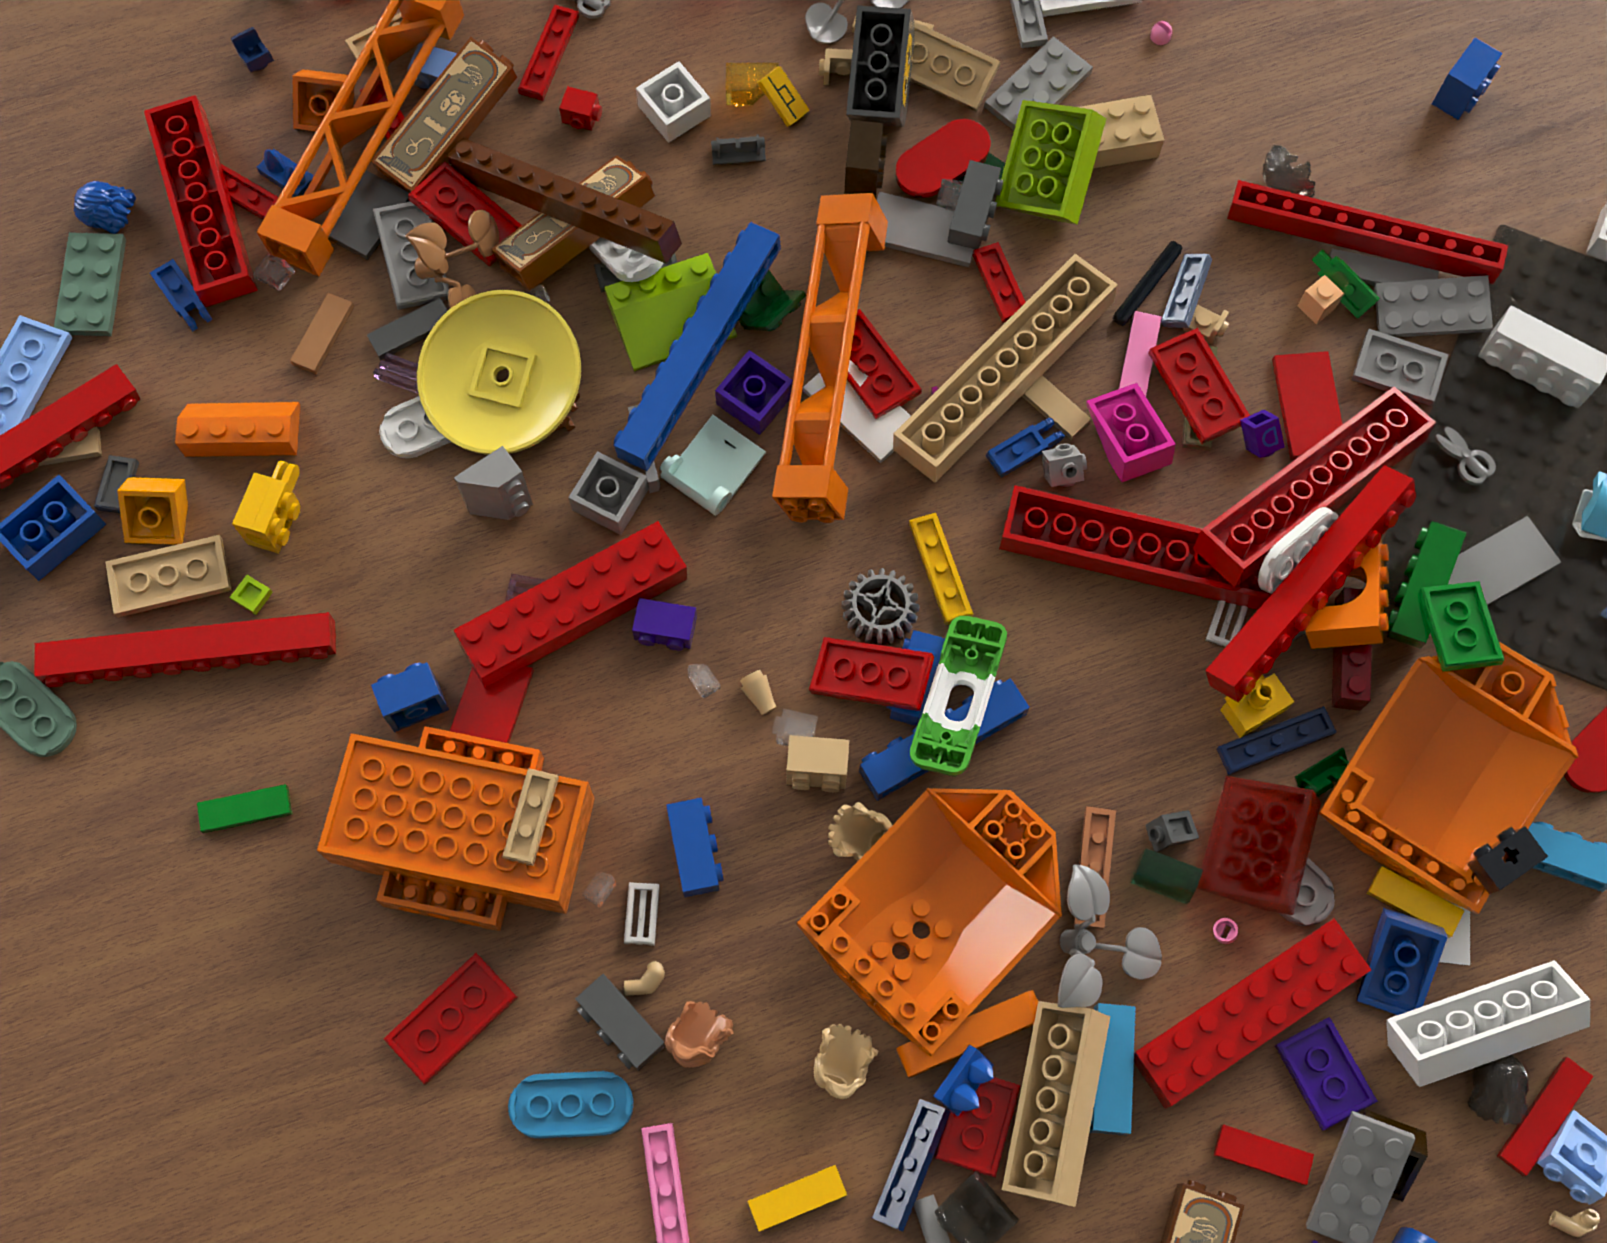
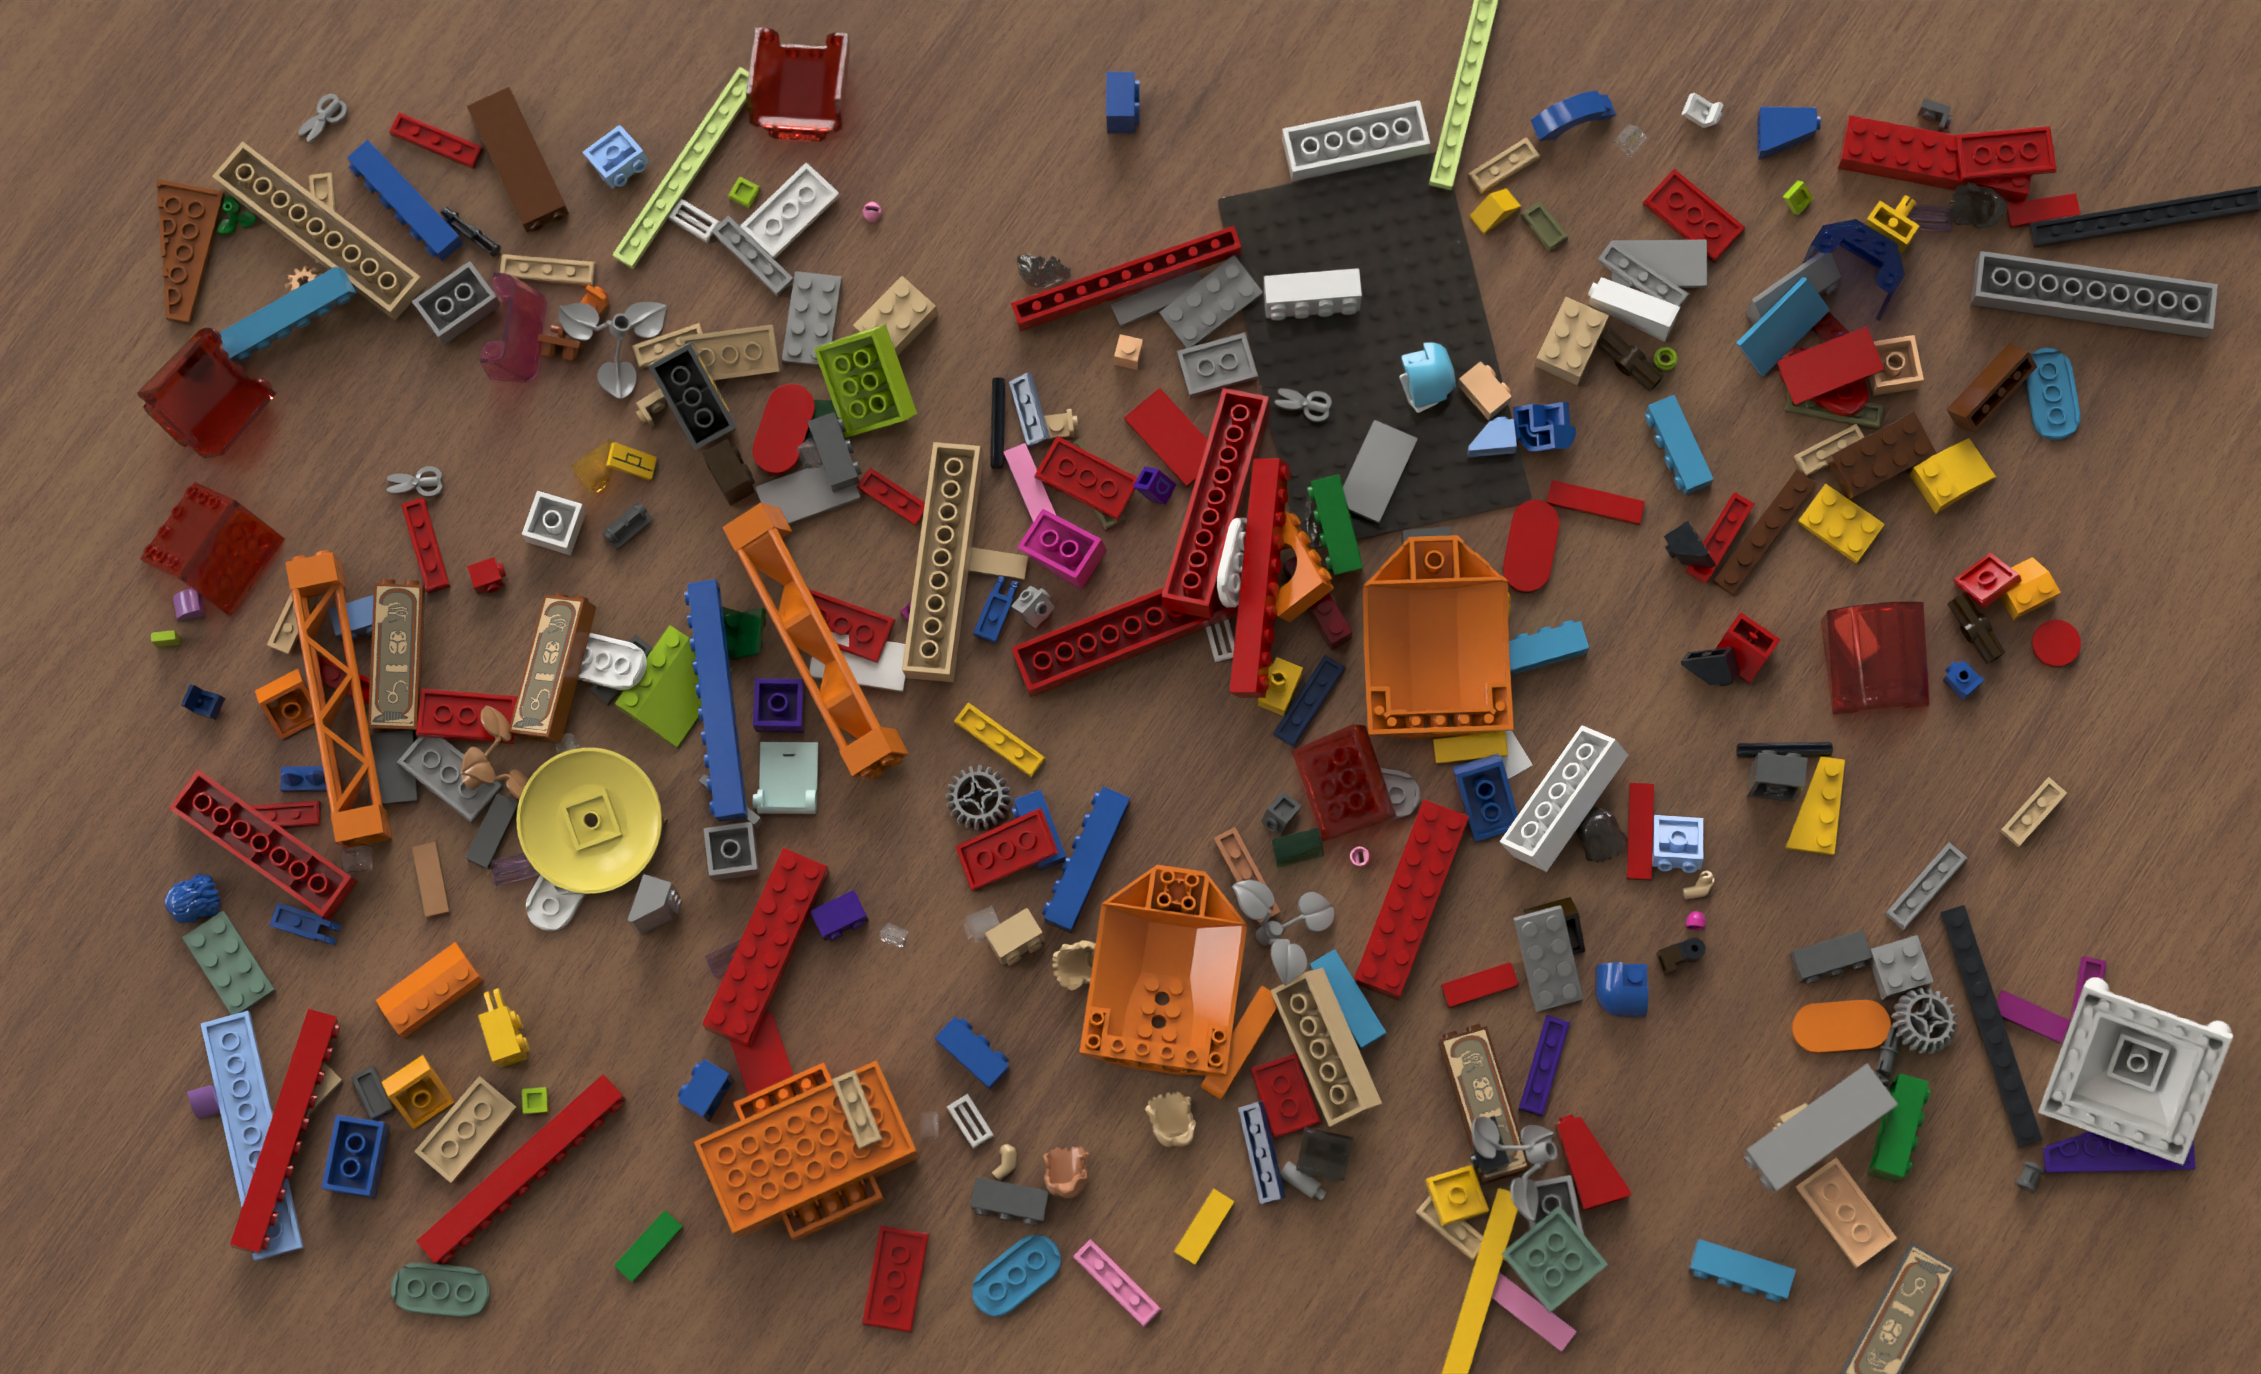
camera: 30 degrees left, 5 degrees up
(566, 200) = (539, 660): reddish brown brick -> none
(758, 691) = (938, 916): tan cone -> none
(959, 1087) = (1257, 1076): blue tile -> none
(968, 659) = (1064, 794): bright green piece -> none
(1322, 774) = (1353, 706): dark green hinge -> none
(1325, 1073) = (1485, 903): dark purple tile -> none
(1357, 294) = (1148, 329): green hinge -> none
(1461, 626) = (1376, 543): green tile -> none
(1522, 854) = (1516, 670): black brick -> none

